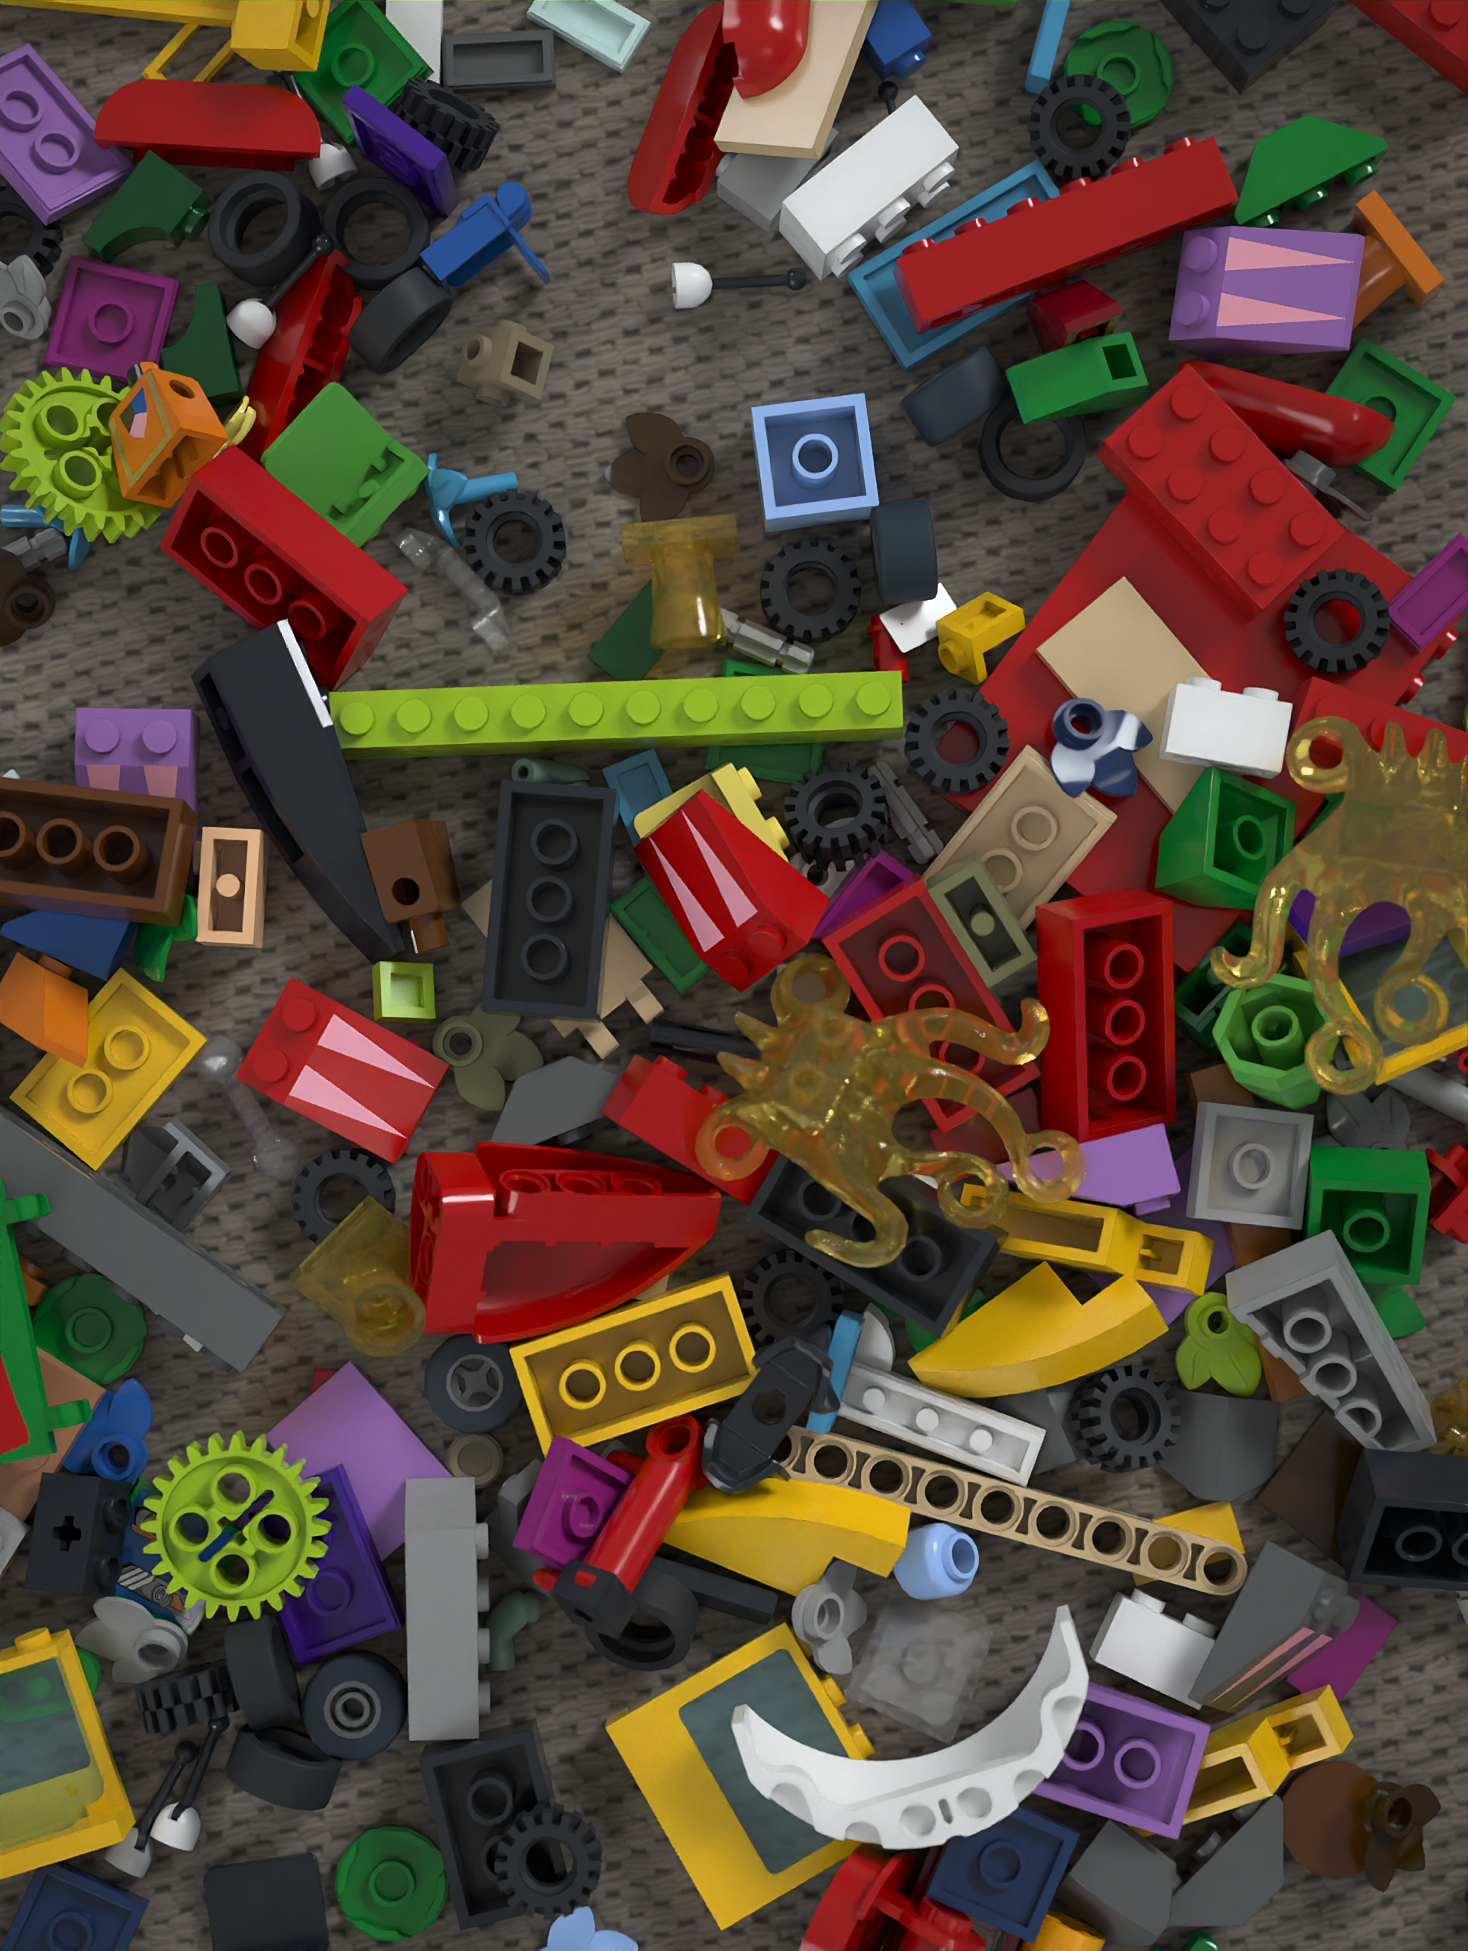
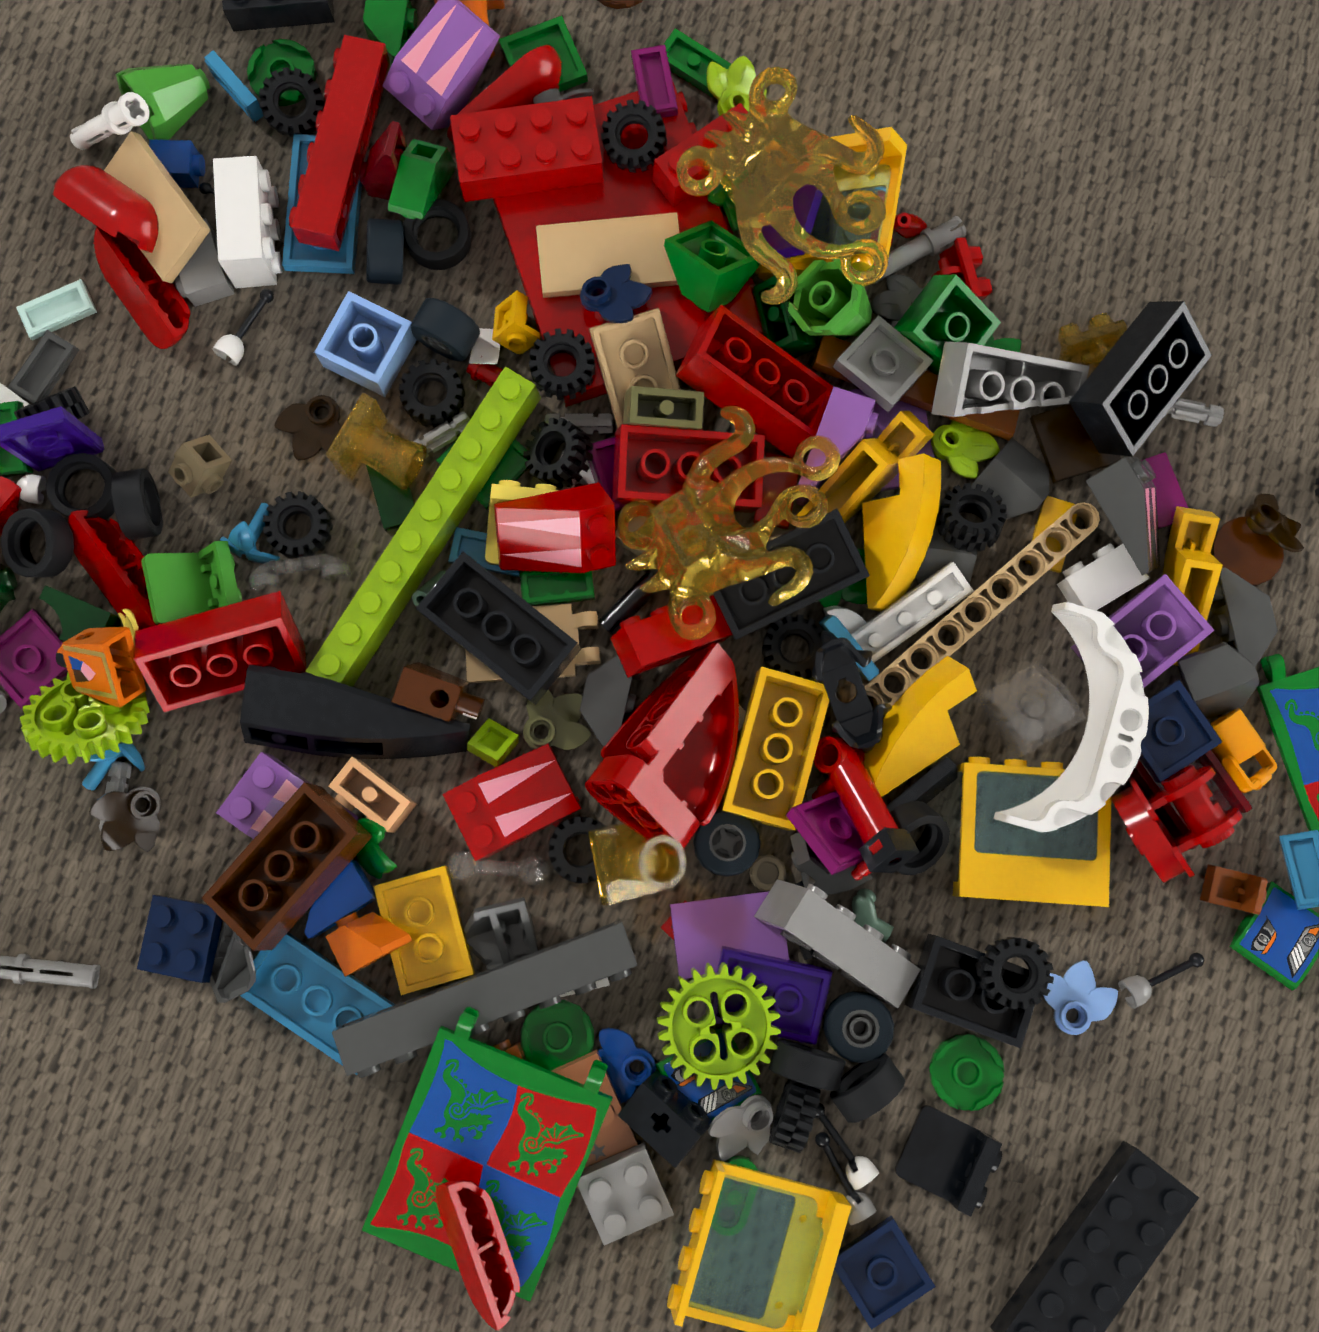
camera: 55 degrees left, 5 degrees down
(255, 318) = (81, 580): hinge -> none
(481, 236) = (125, 431): blue piece -> none
(828, 1615) = (974, 737): light grey plate -> none
(936, 1561) = (985, 660): light blue head -> none
(1225, 728) = (649, 221): white brick -> none

